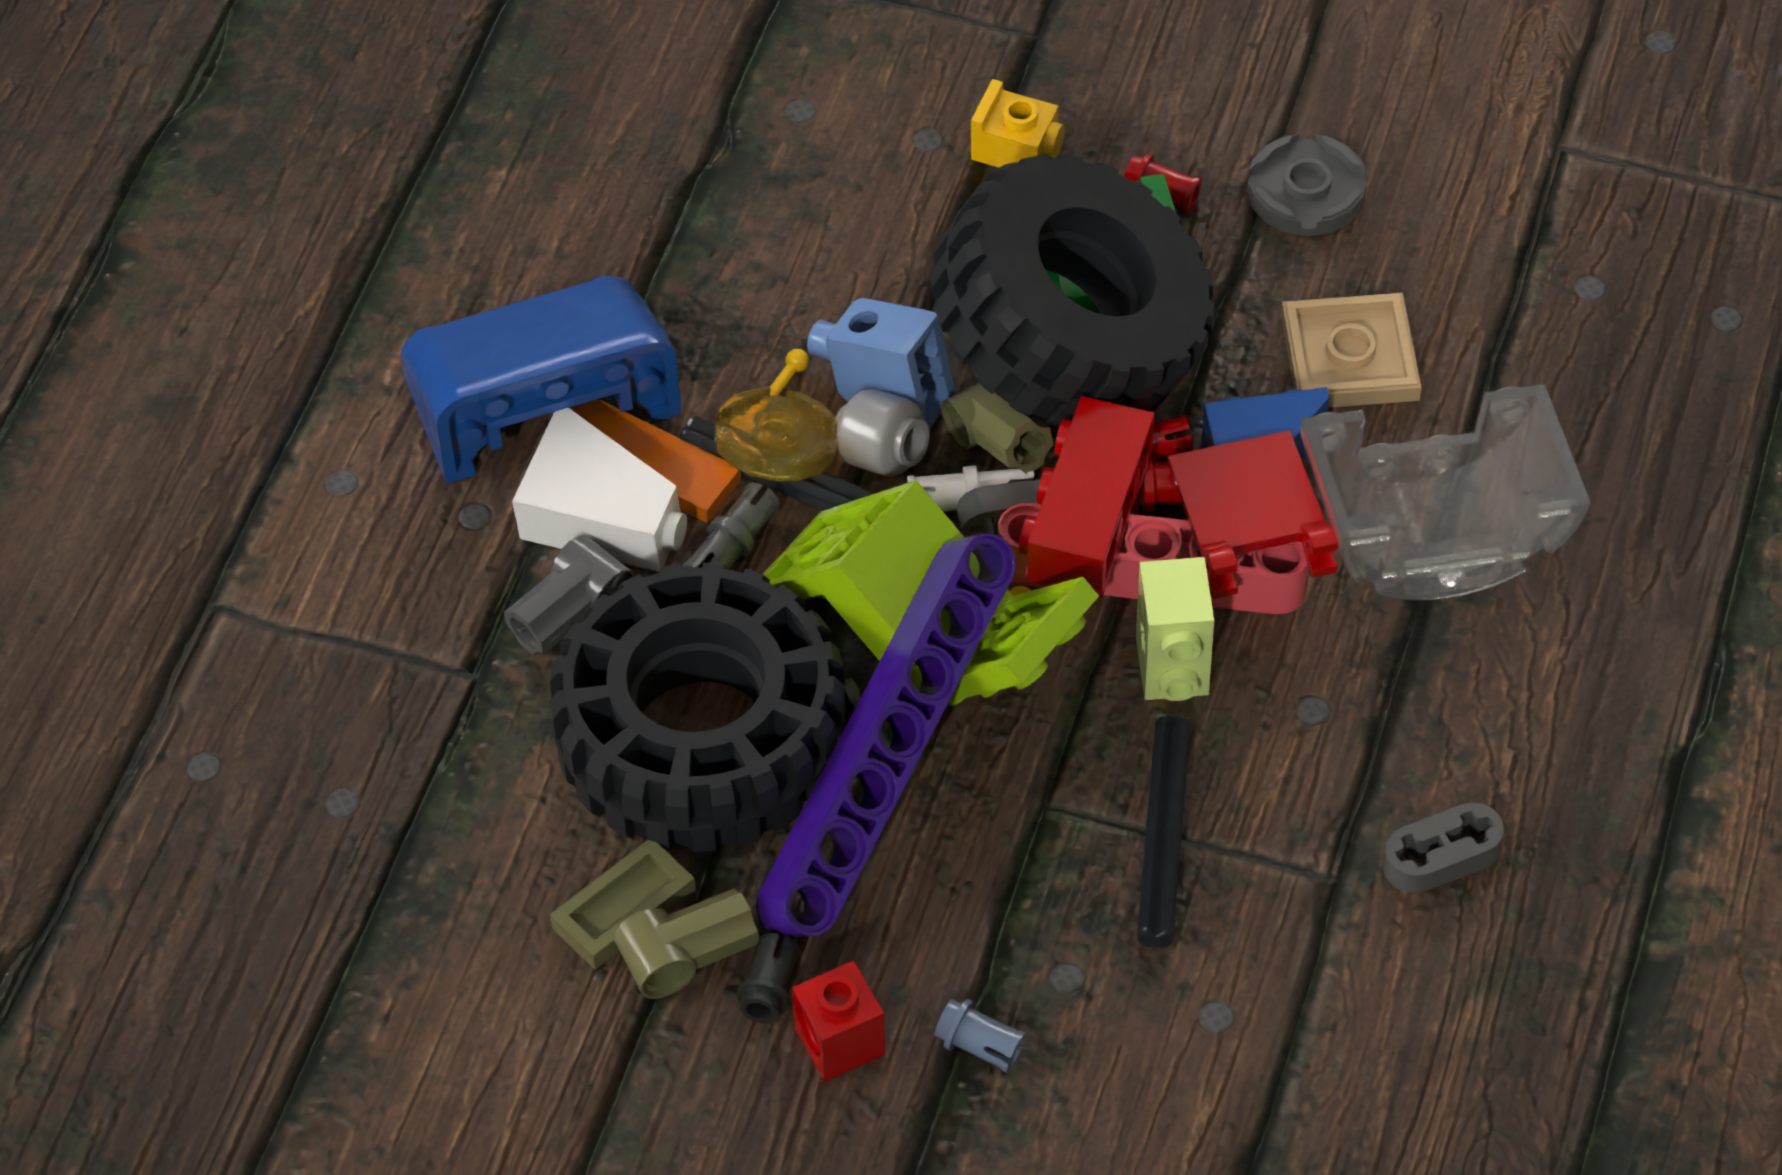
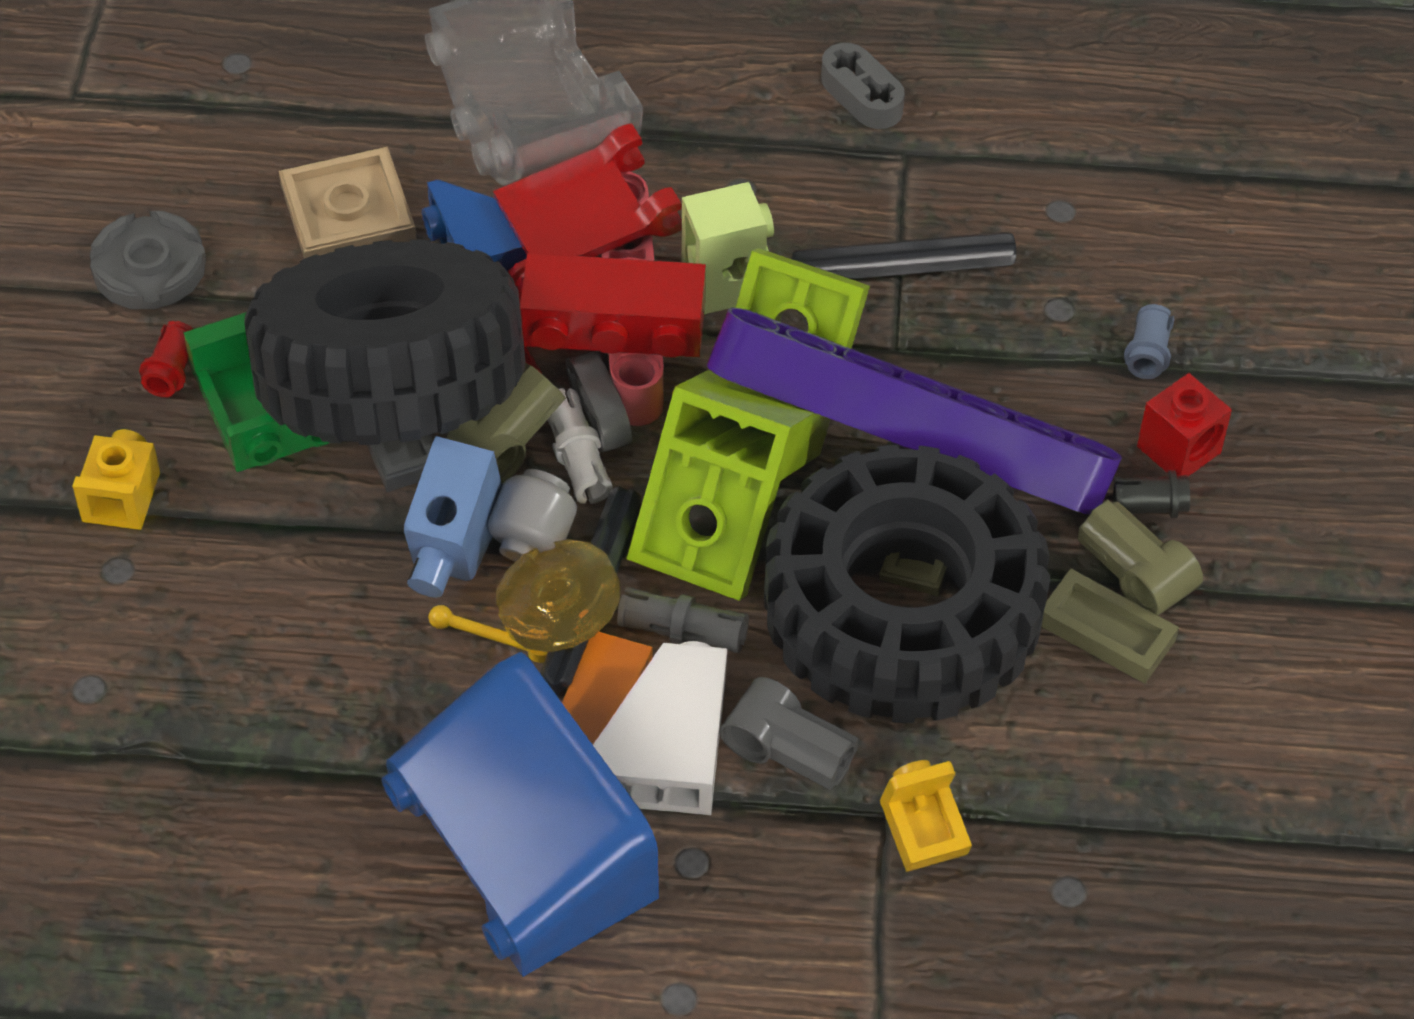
camera: 105 degrees left, 0 degrees up
(440, 678) = (924, 814): none -> yellow bracket

